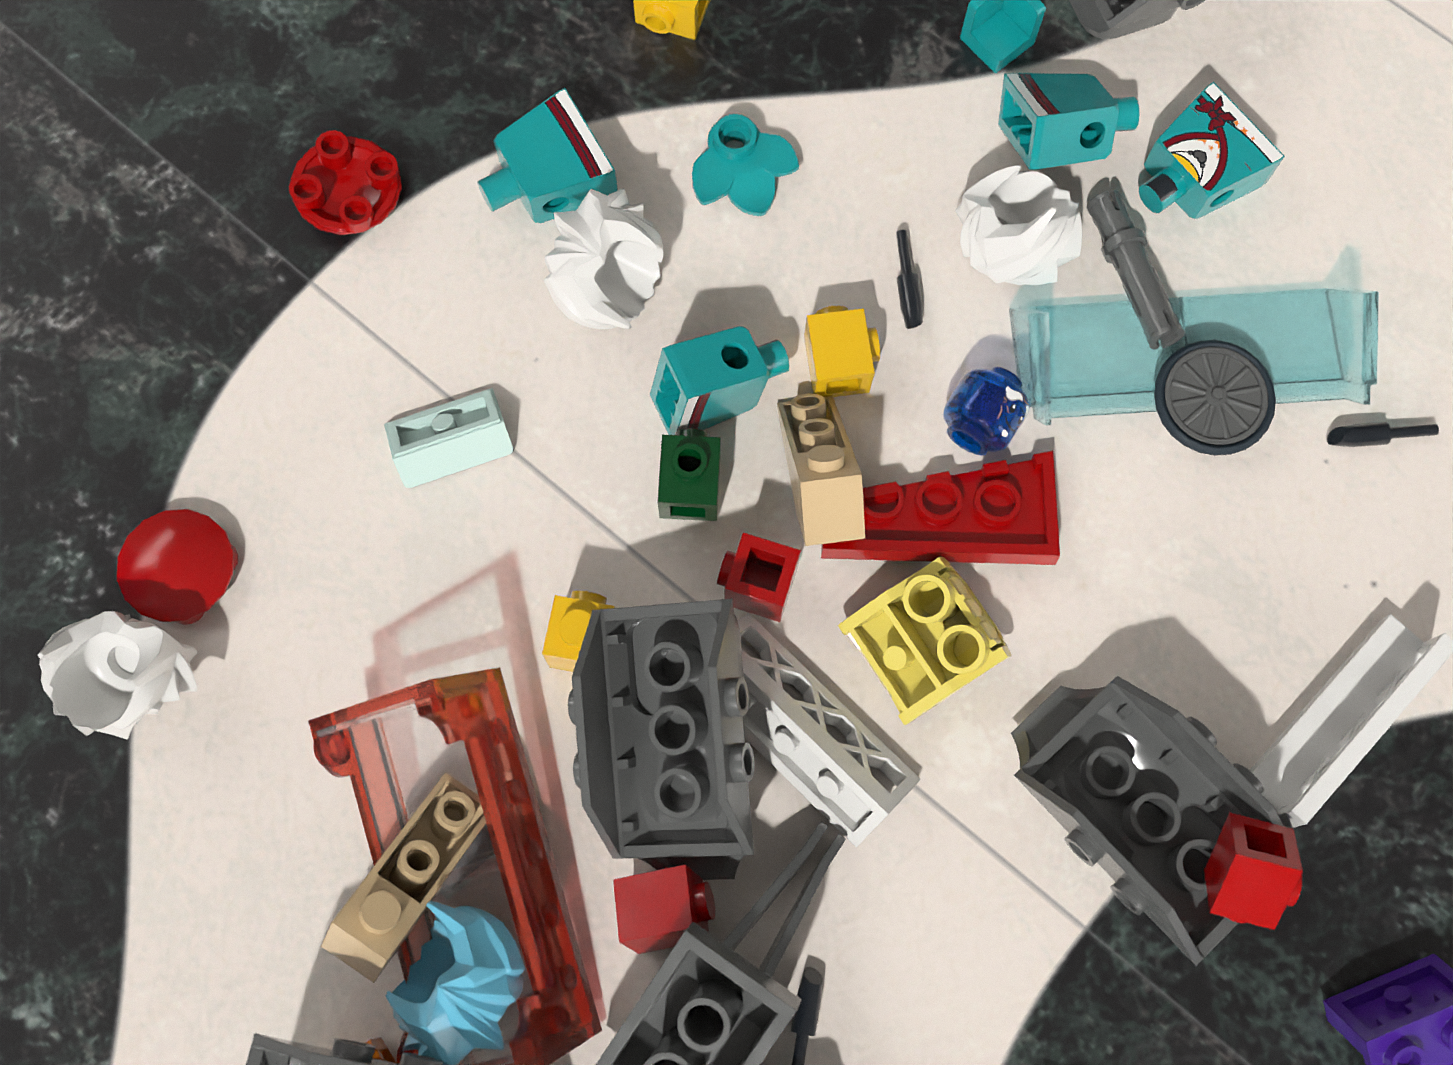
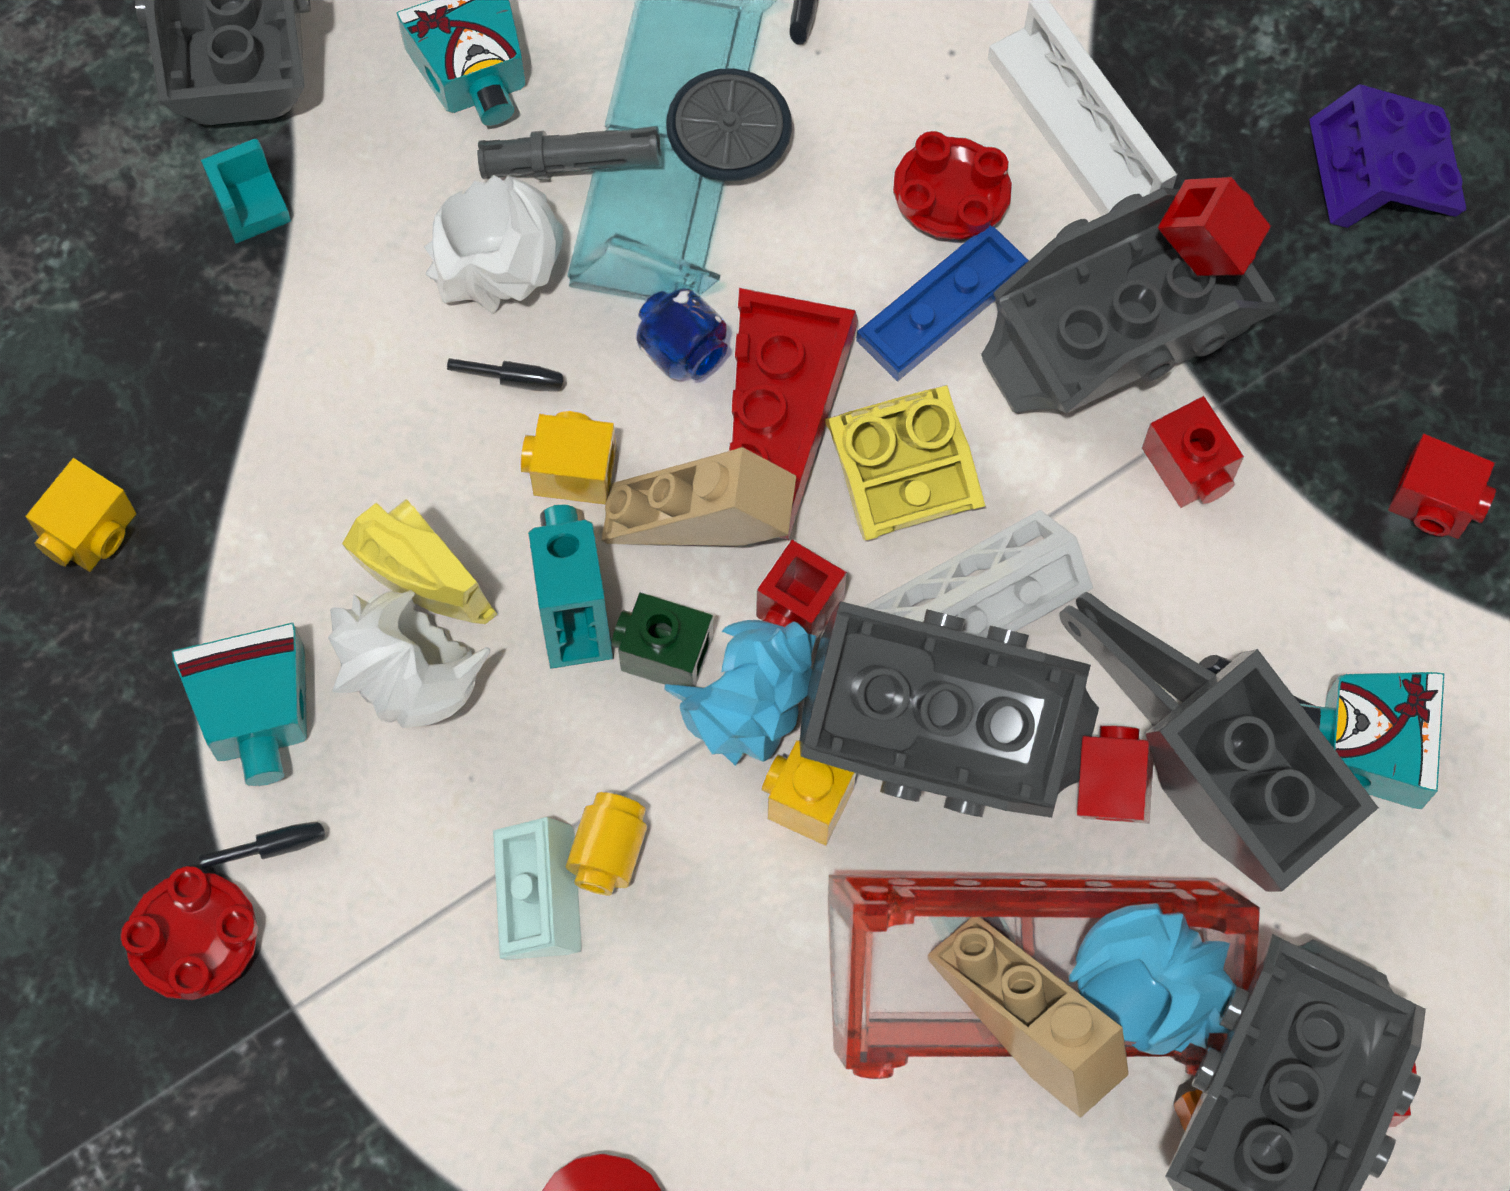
camera: 75 degrees left, 5 degrees down
(437, 220) = (270, 844): none -> black piece
(495, 478) = (607, 843): none -> yellow brick
(653, 555) = (756, 696): none -> medium azure hair
(695, 254) = (408, 556): none -> light yellow slope
(743, 172) = (325, 501): teal plate -> none
(1019, 913) = (1193, 453): none -> red brick
(1062, 118) = (383, 167): teal torso -> none
(1105, 637) = (940, 303): none -> blue tile
(1226, 616) = (952, 186): none -> red dish

